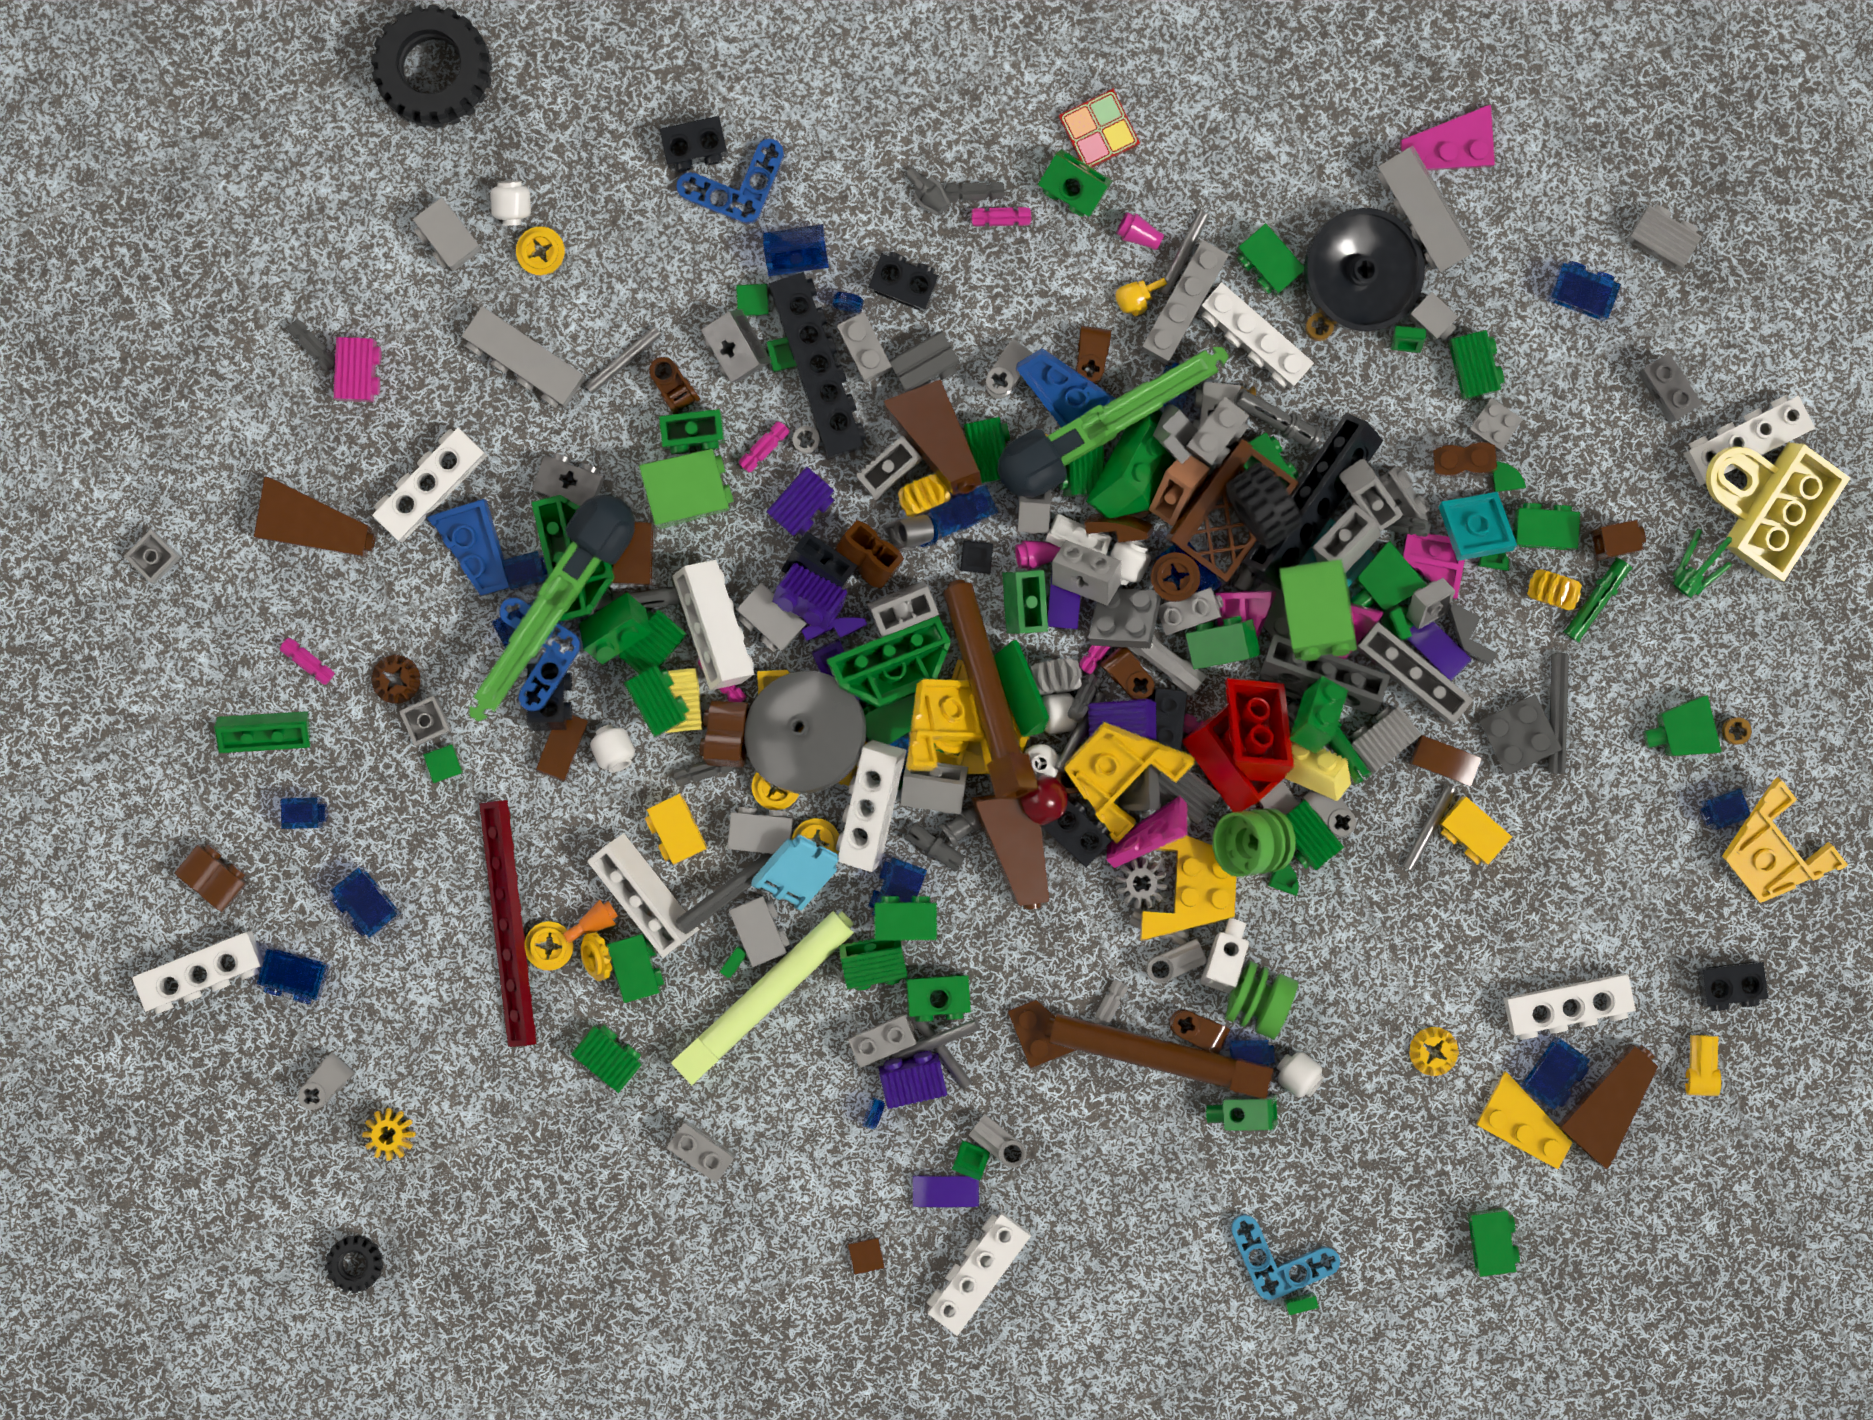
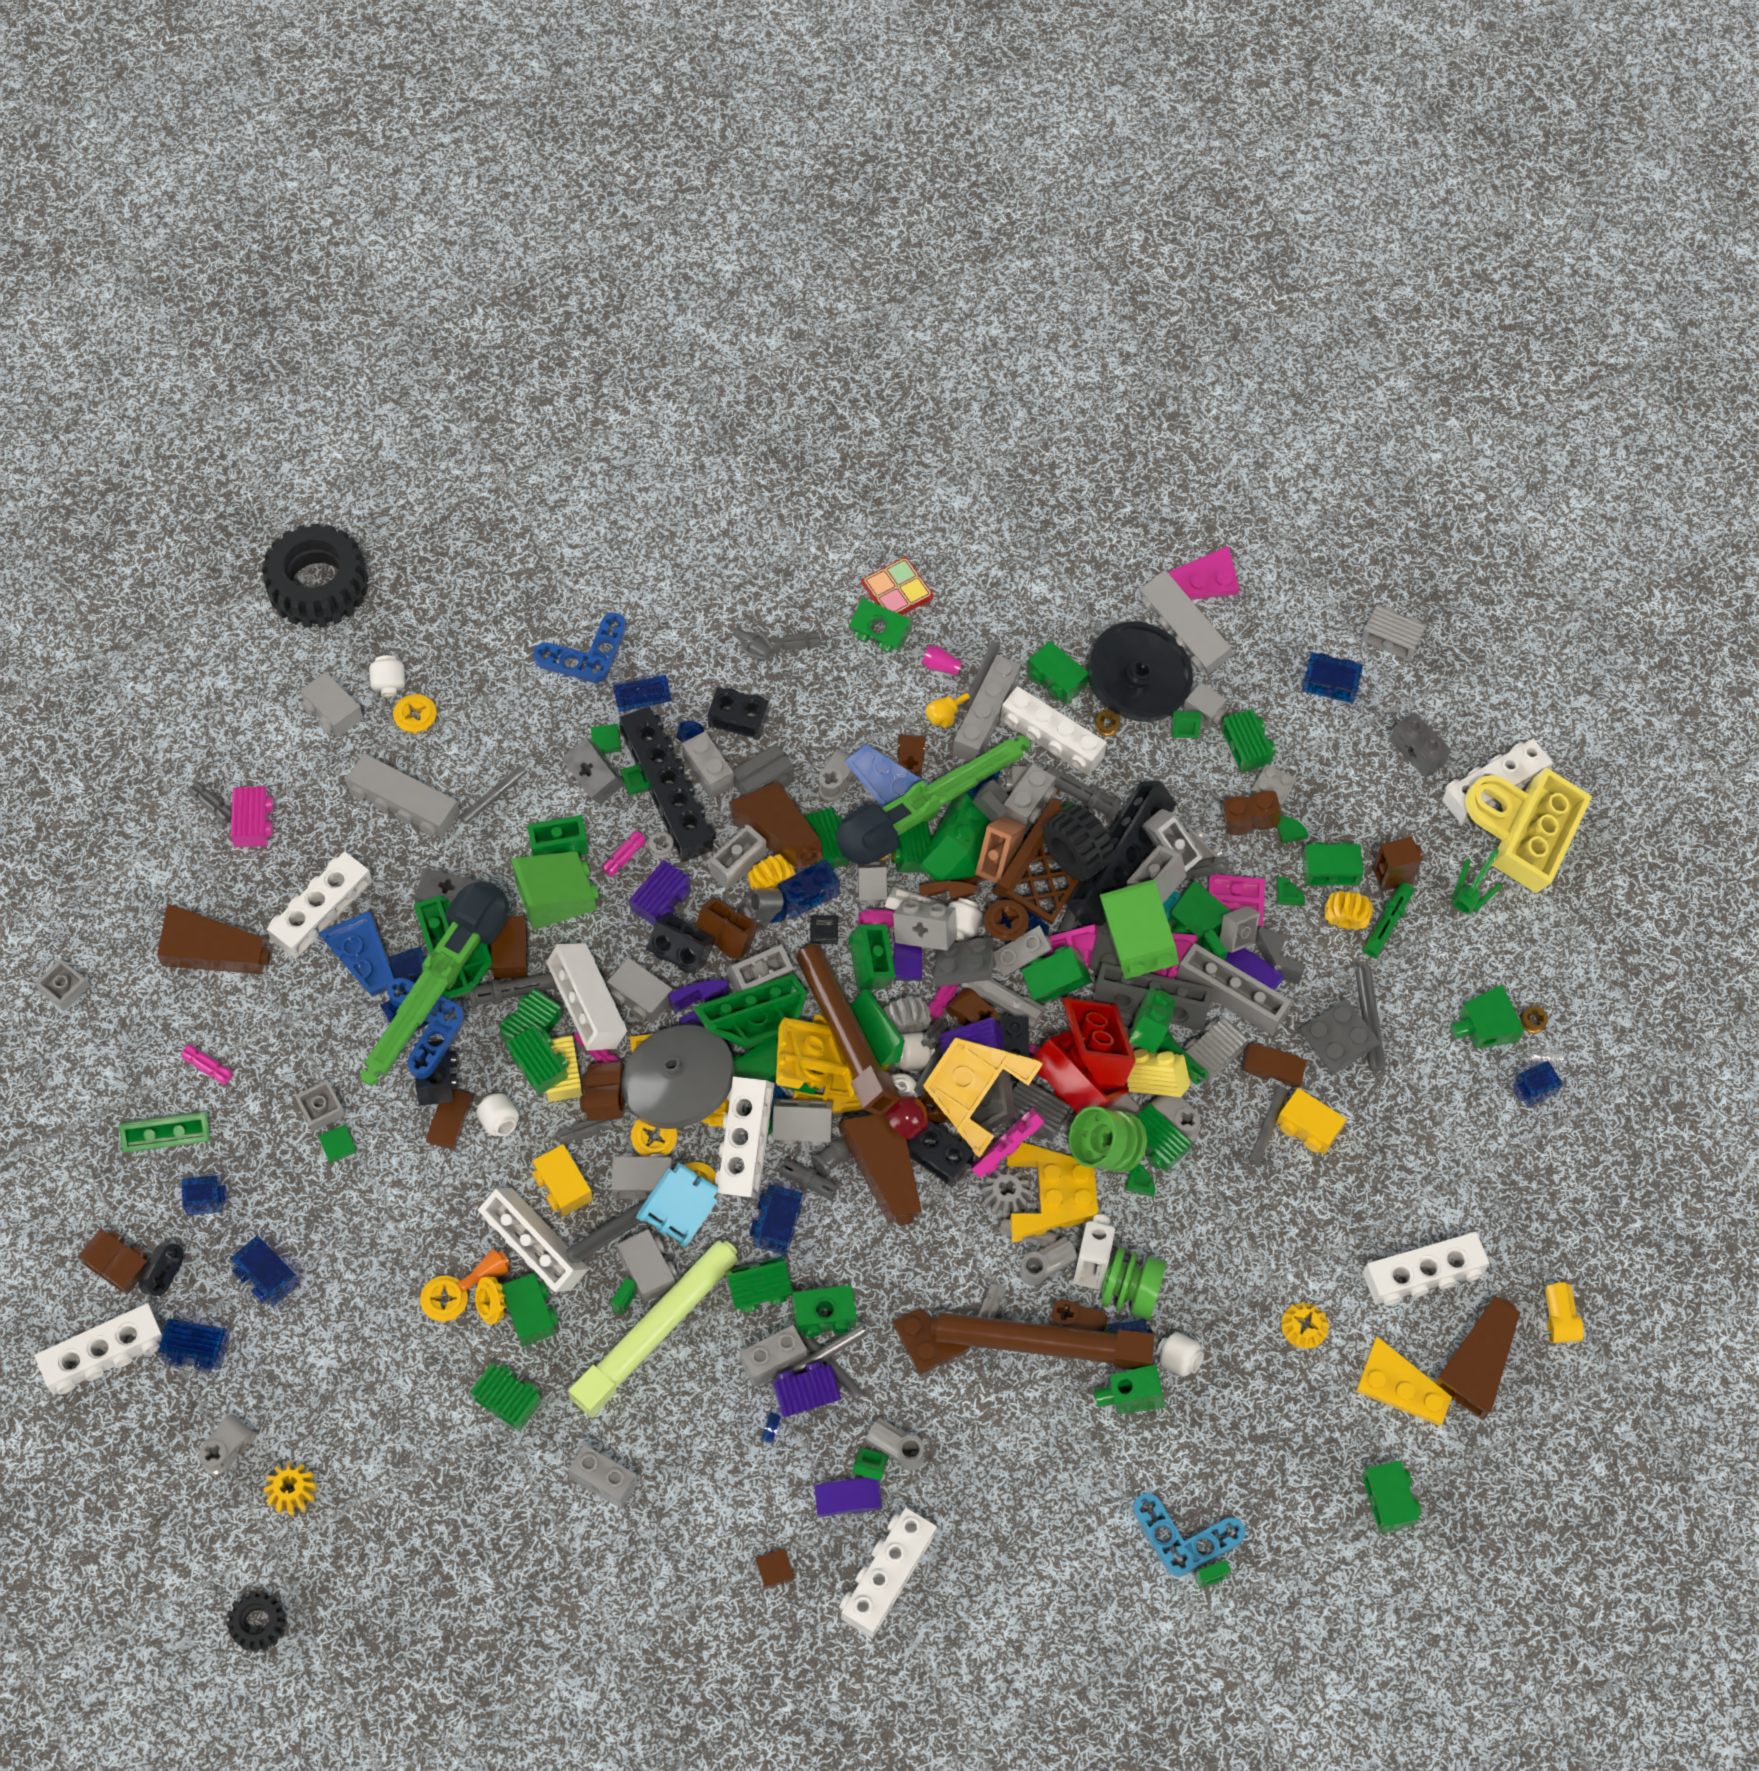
camera: 10 degrees left, 25 degrees down
(259, 890) = (161, 1269): none -> black beam
(409, 675) = (293, 1085): reddish brown gear -> none
(507, 923) = (403, 1282): dark red plate -> none
(614, 628) = (495, 1006): green brick -> none
(674, 386) = (538, 809): reddish brown piece -> none
(692, 134) = (544, 615): black brick -> none
(809, 596) = (674, 962): dark purple brick -> none
(905, 919) = (786, 1233): green brick -> none
(1001, 216) = (819, 659): dark pink axle -> none
(1477, 526) = (1271, 864): teal plate -> none
(1556, 1073) = (1424, 1331): clear blue brick -> none
(1732, 977) = (1572, 1231): black brick -> none
(1740, 776) = (1537, 1056): none -> clear pin
(1766, 858) = (1583, 1121): yellow wing -> none

